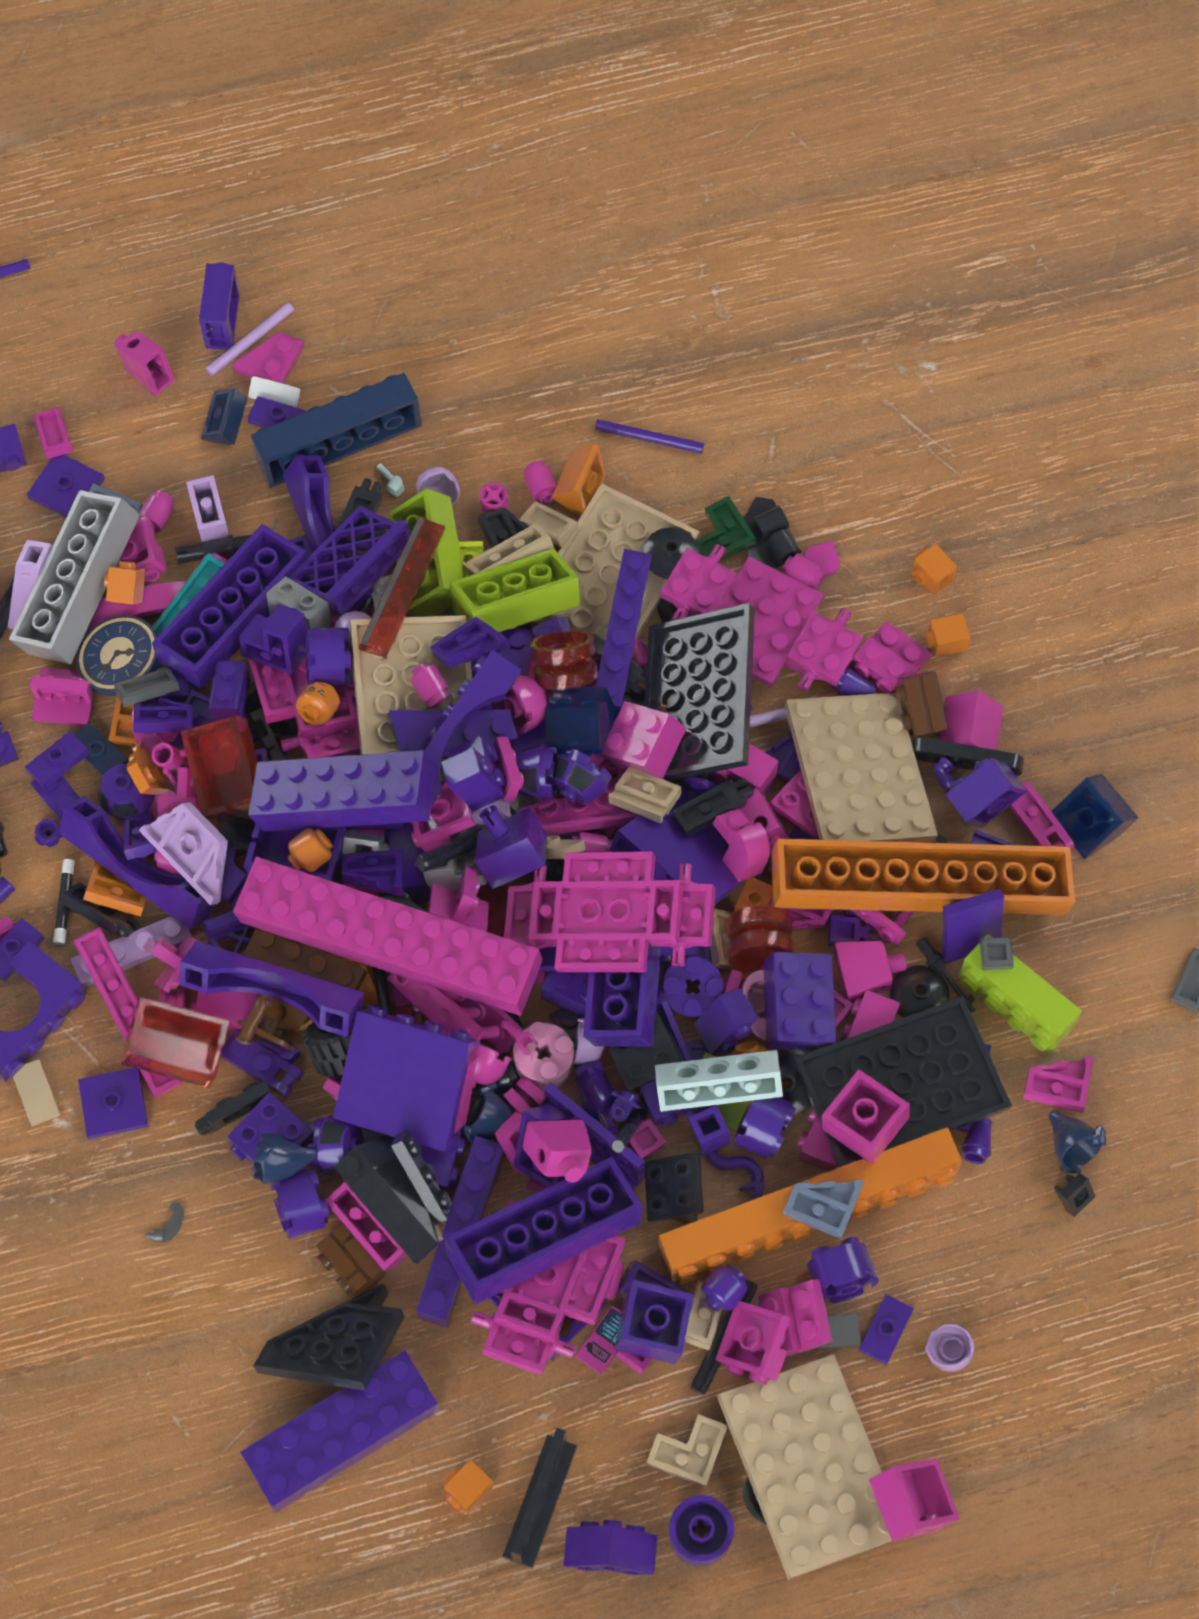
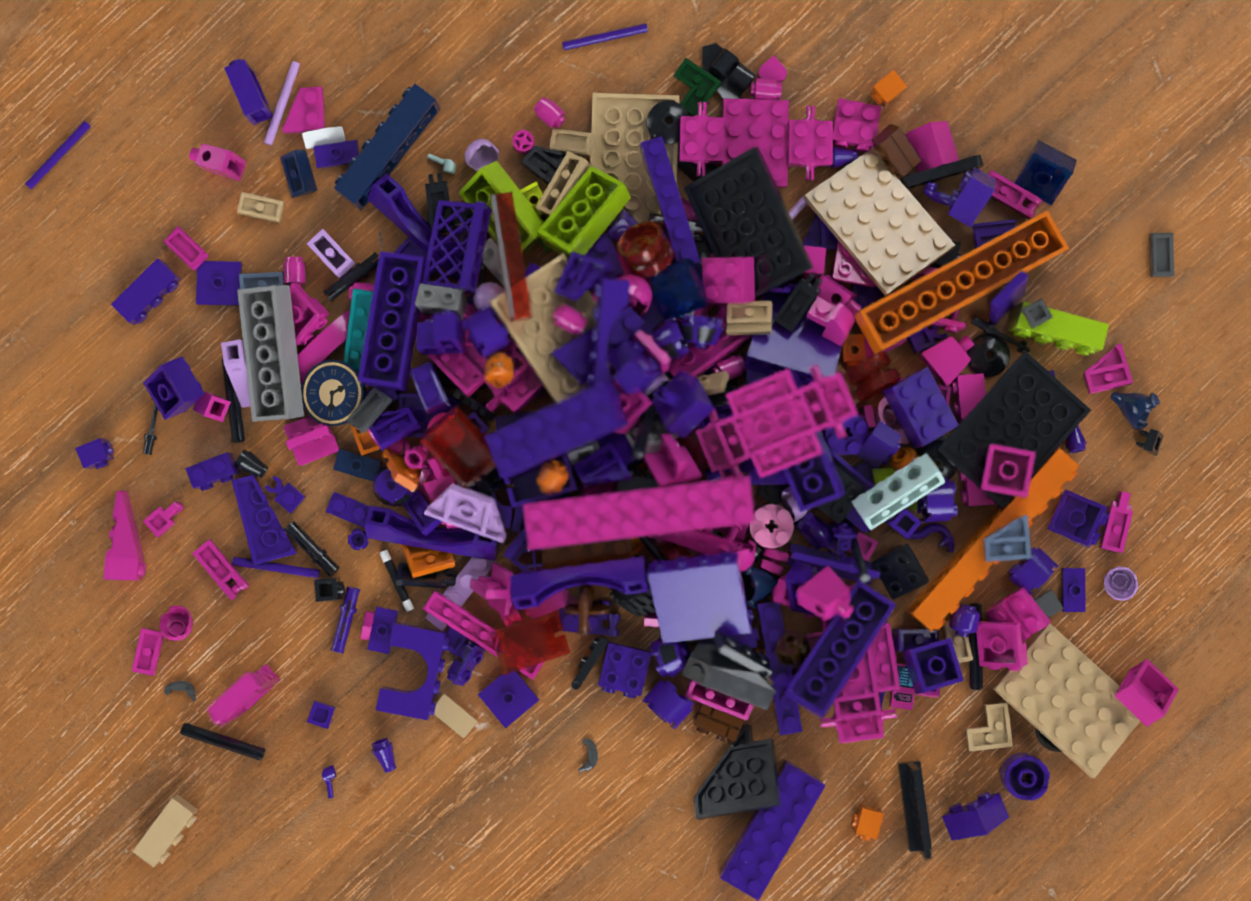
camera: 30 degrees left, 20 degrees up
(57, 760) = (335, 488): dark purple plate -> none
(77, 1043) = (461, 672): none -> dark purple hinge
(92, 1006) = (456, 640): none -> dark purple tile
(125, 583) = (309, 342): orange brick -> none
(160, 430) = (260, 207): none -> tan plate
(279, 1158) = (644, 687): dark blue hat -> none
(484, 1200) = (792, 649): none -> dark brown brick
(522, 1039) = (755, 527): dark pink hand -> none
(580, 479) = (576, 98): orange slope -> none
(933, 568) = (852, 42): orange brick -> none
(935, 1241) = (1078, 519): none -> dark purple plate
(981, 1274) = (1118, 524): none -> dark pink hinge

